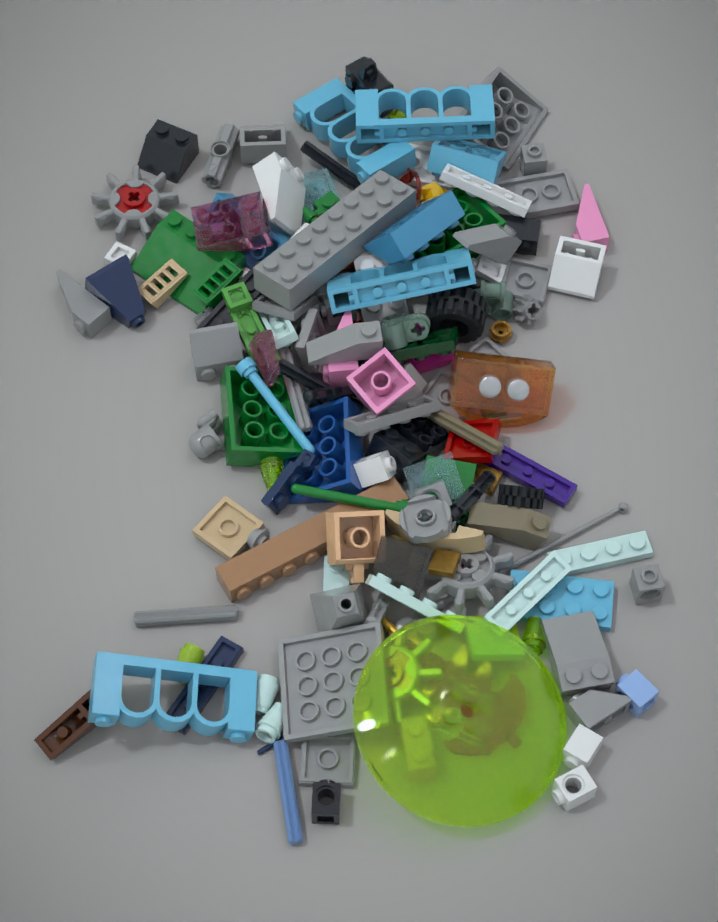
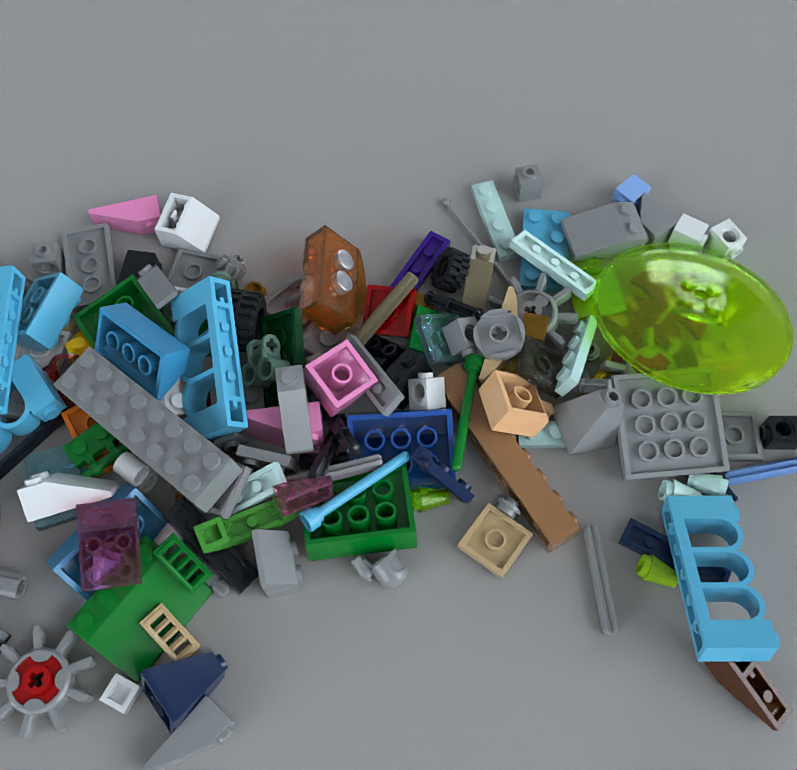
camera: 90 degrees left, 5 degrees up
(486, 190) = (88, 292): white plate -> none

